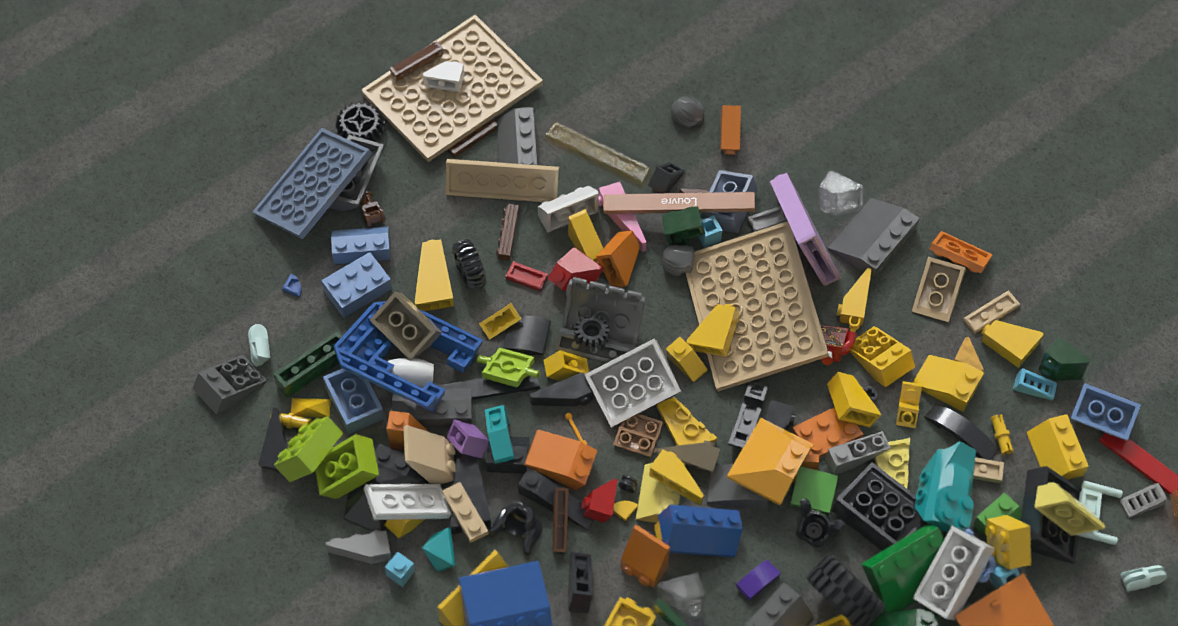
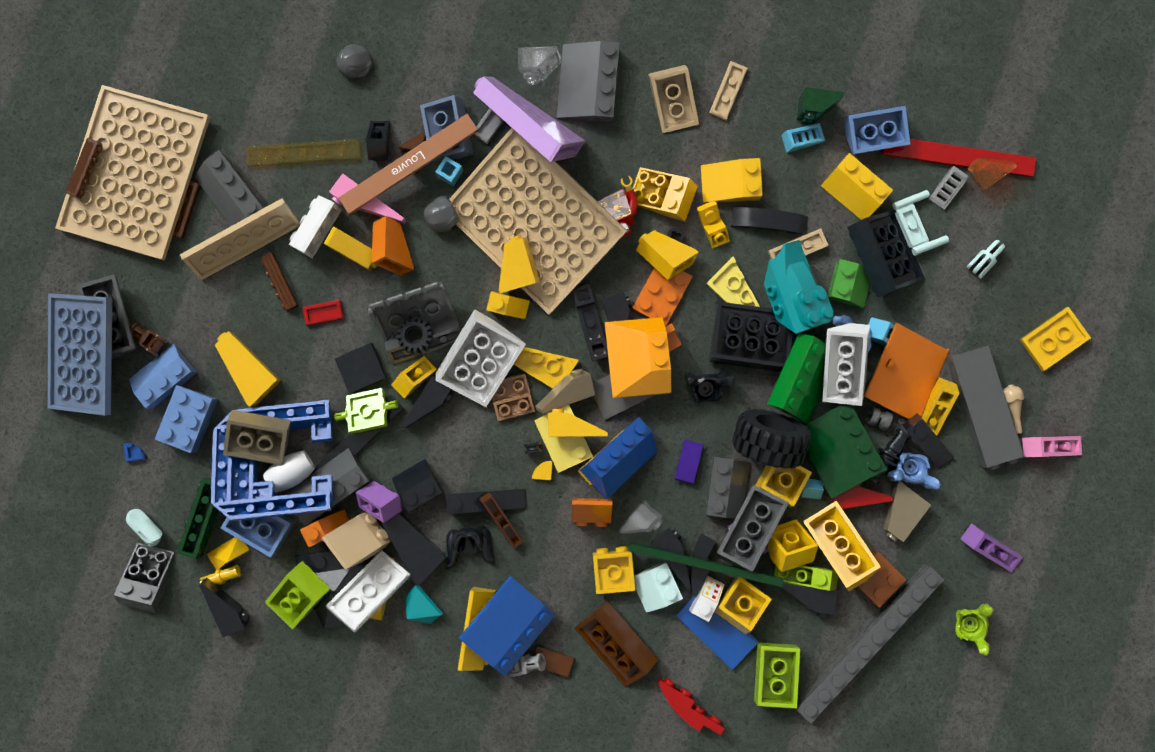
camera: 30 degrees left, 25 degrees up
(308, 448) = (255, 601): lime brick -> none
(366, 548) = (364, 645): light grey slope -> none
(371, 122) = (92, 255): black gear -> none
(400, 569) = (401, 646): medium azure brick -> none
(445, 76) = (120, 168): white slope -> none
(465, 512) = (421, 567): tan plate -> none
(469, 264) = (268, 339): black gear -> none
(497, 428) = (399, 483): teal slope -> none
(500, 321) = (330, 372): yellow slope -> none
(561, 458) = (465, 466): orange slope -> none
(568, 416) = (444, 418): light orange hinge -> none
(574, 265) = (363, 286): red slope -> none
(580, 583) = (551, 559): black slope -> none
(600, 502) = (521, 480): red slope -> none
(683, 225) = (426, 184): dark green brick -> none
(730, 129) = (403, 57): orange slope -> none
(816, 487) = (686, 353): bright green tile -> none
(855, 300) = (613, 160): yellow slope -> none
(856, 452) = (700, 298): light grey slope -> none
(960, 252) = (672, 51): orange plate -> none
(968, 355) = (736, 149): slope -> none
(1002, 434) = (803, 202): yellow pin -> none
(1010, 541) = (871, 304): yellow brick -> none
(1011, 341) = (762, 109): yellow slope -> none
(1066, 510) = (903, 245): light yellow slope -> none

